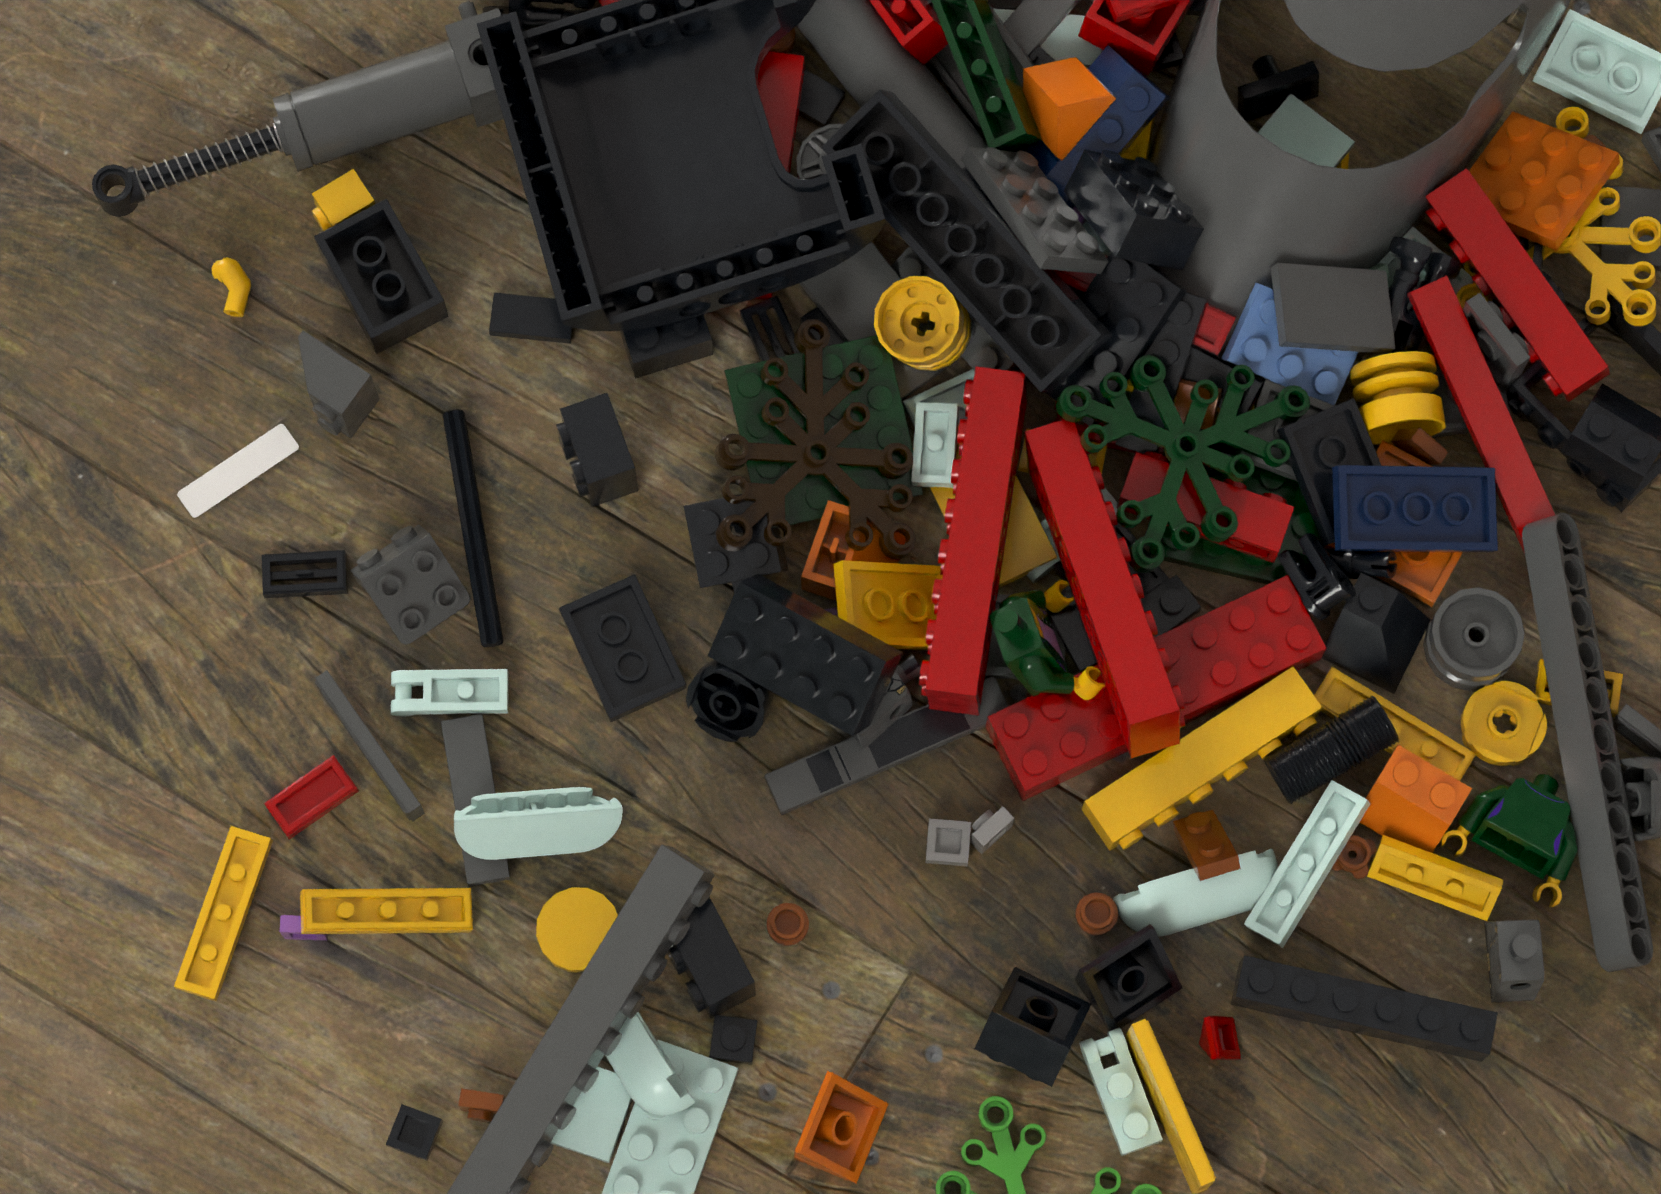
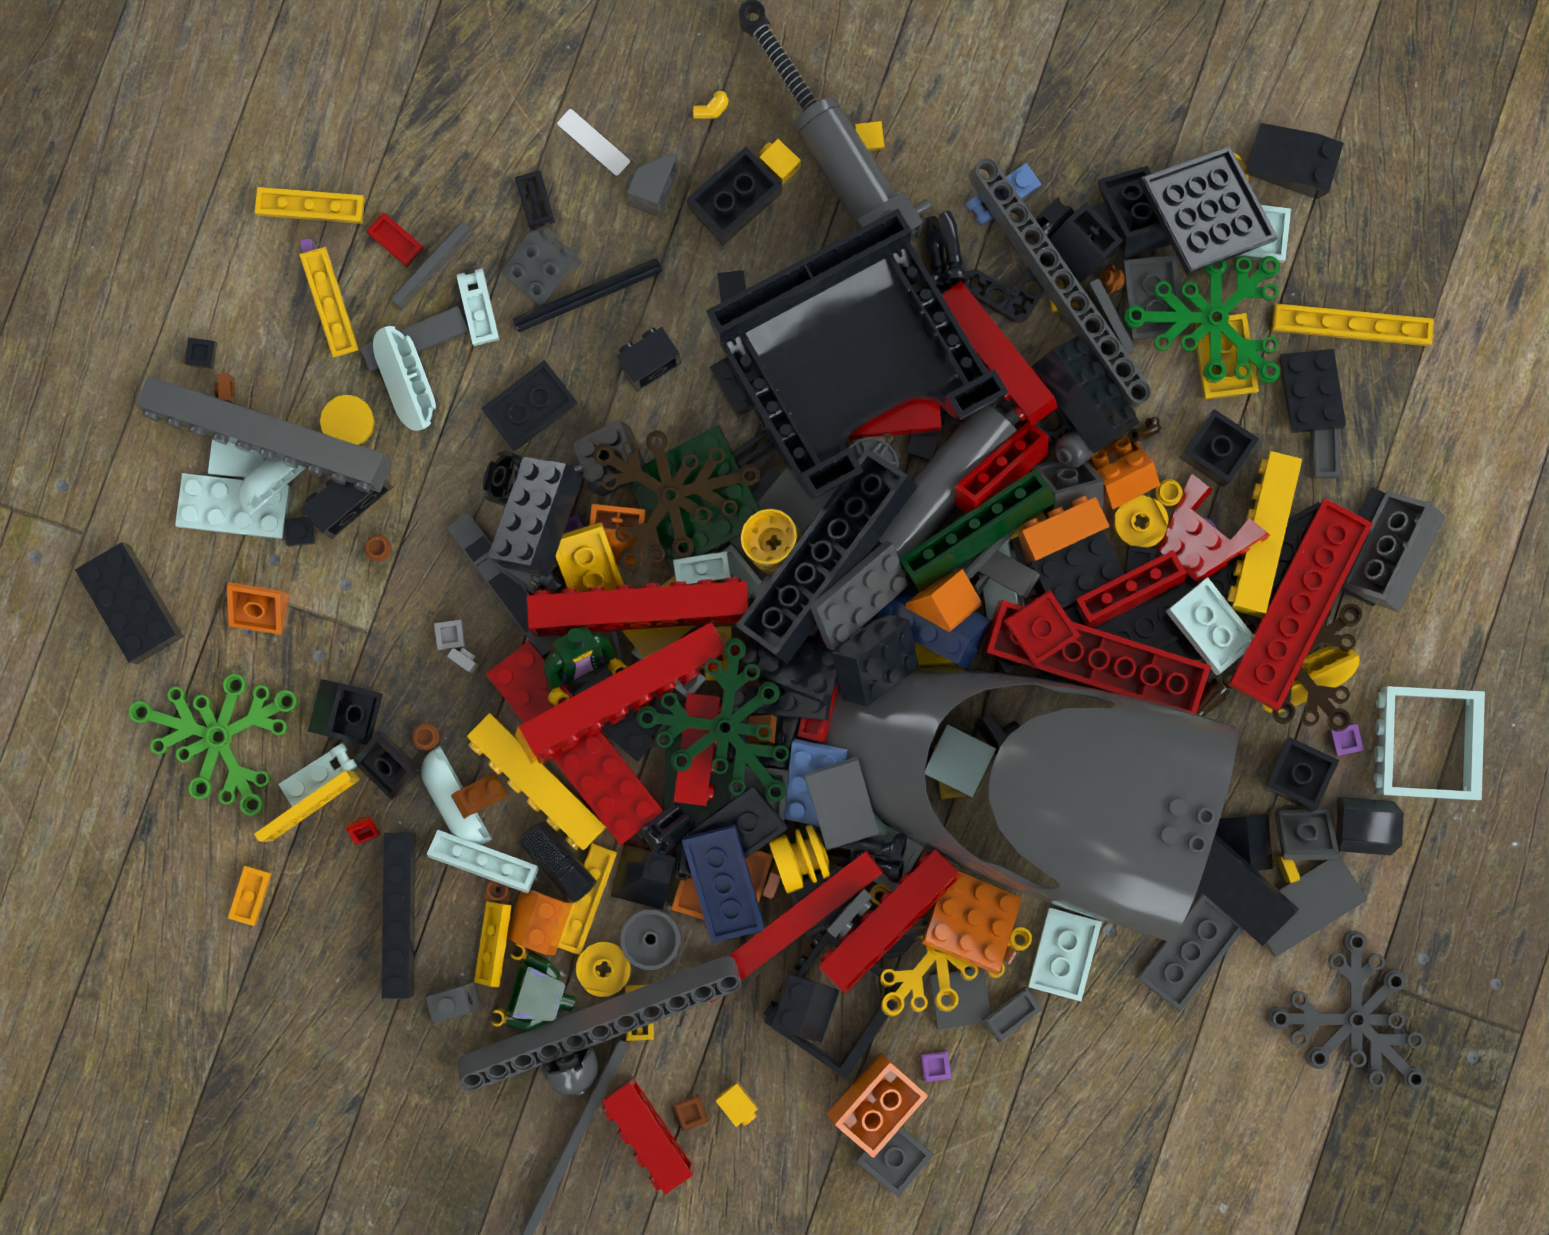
camera: 75 degrees right, 10 degrees up
(337, 63) = (871, 135): none -> yellow tile

